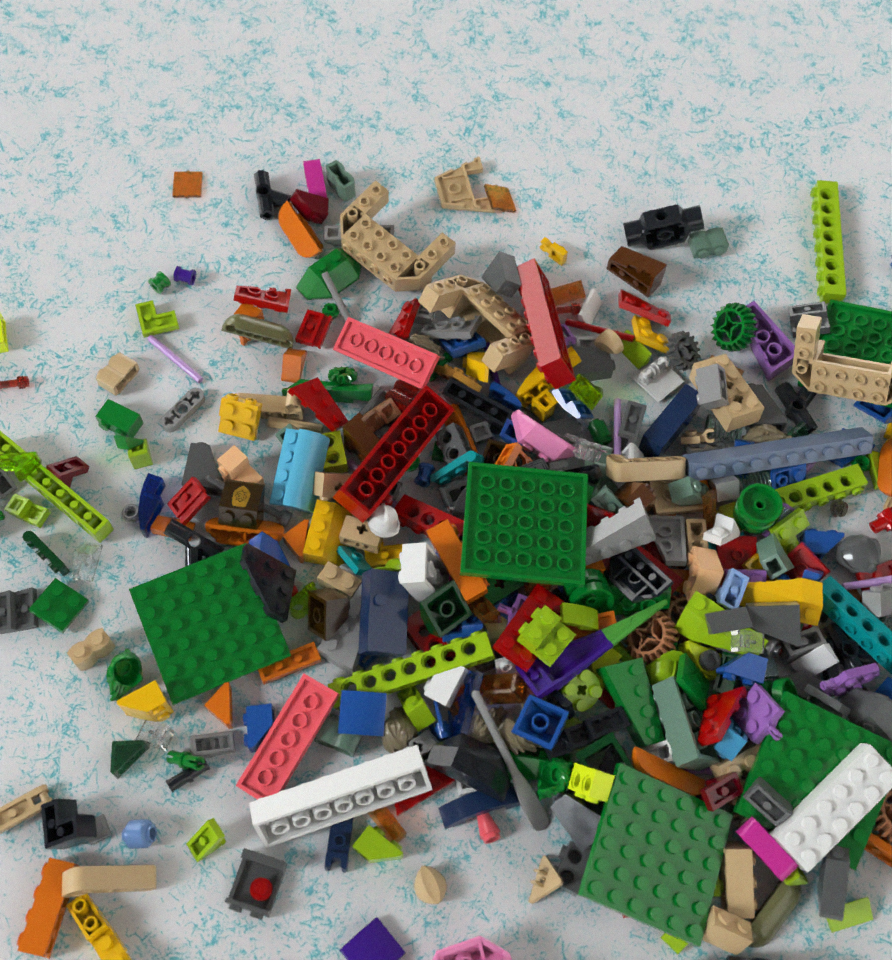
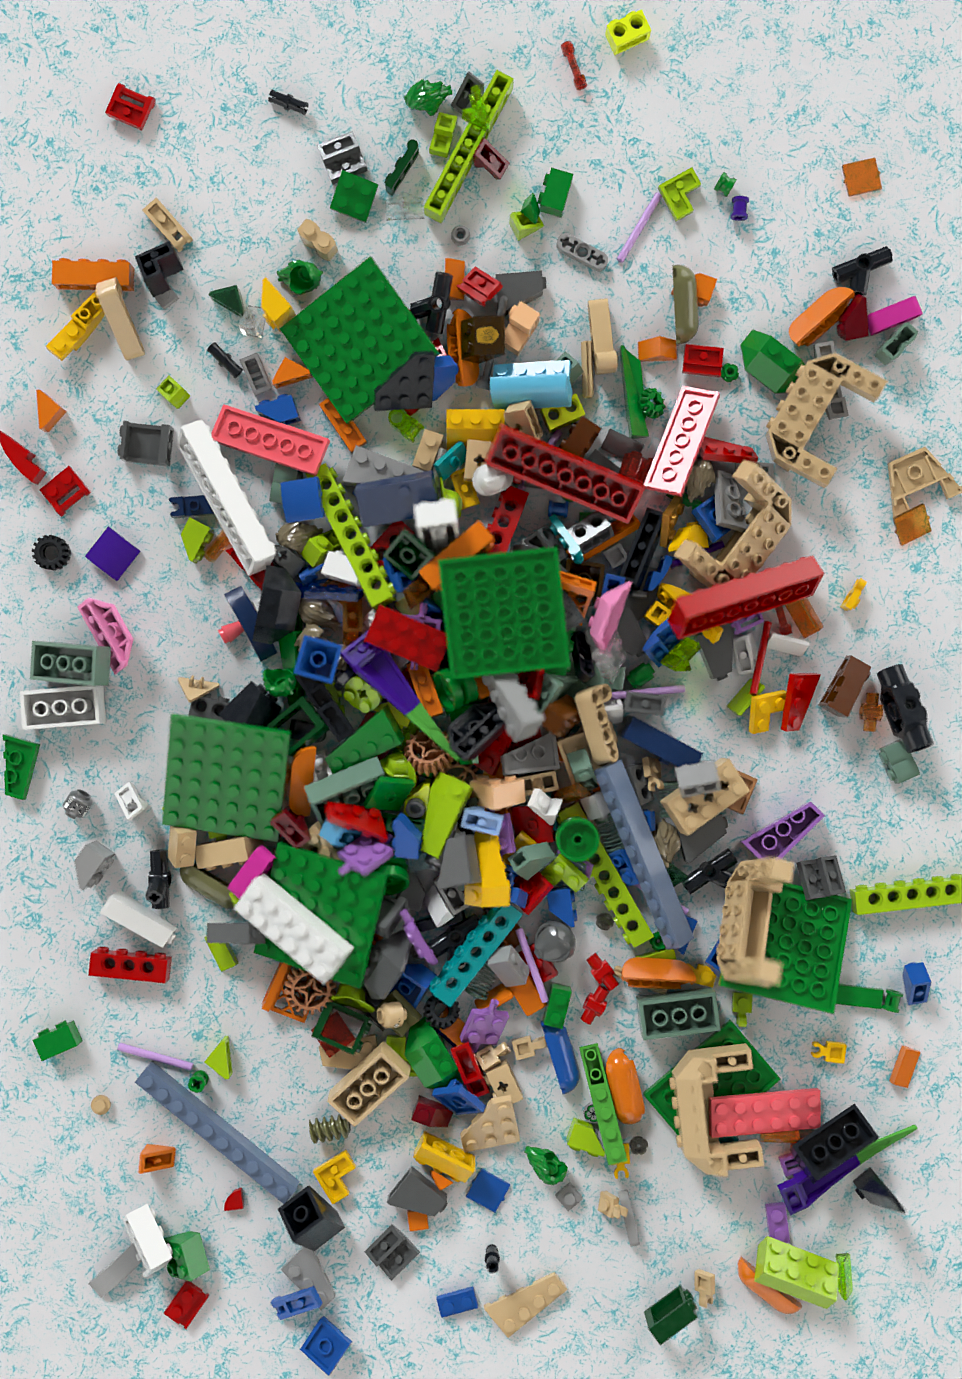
camera: 80 degrees right, 25 degrees up
(117, 373) = (607, 174): tan brick -> none
(139, 834) = (166, 332): medium blue head -> none
(150, 502) = (471, 249): clear blue slope -> none
(185, 760) = (234, 354): green pin -> none
(239, 416) = (581, 310): yellow plate -> none
(260, 298) = (724, 301): red wing -> none
(261, 889) = (141, 448): red plate -> none
(296, 539) = (463, 400): orange slope -> none
(317, 398) = (609, 385): red wing -> none
(326, 612) = (391, 446): dark brown slope -> none
(335, 295) = (742, 375): light grey bar -> none
(381, 414) = (611, 449): medium nougat slope -> none
(430, 885) = (174, 592): tan piece -> none
(503, 275) = (800, 544): dark grey slope -> none
(527, 797) = (263, 660): light grey piece -> none
(545, 635) = (397, 651): lime plate -> none
(579, 615) = (427, 680): lime slope -> none
(590, 783) = (271, 711): neon yellow brick -> none
(609, 342) = (742, 669): tan piece -> none
(658, 379) = (716, 727): white hinge -> none
(662, 254) = (871, 712): none -> clear orange axle
(683, 350) = (743, 750): dark grey gear -> none
(728, 620) = (444, 818): dark grey slope -> none
(732, 332) = (789, 797): green gear -> none
(747, 641) = (429, 838): clear slope -> none
(768, 801) = (289, 870): dark grey slope -> none

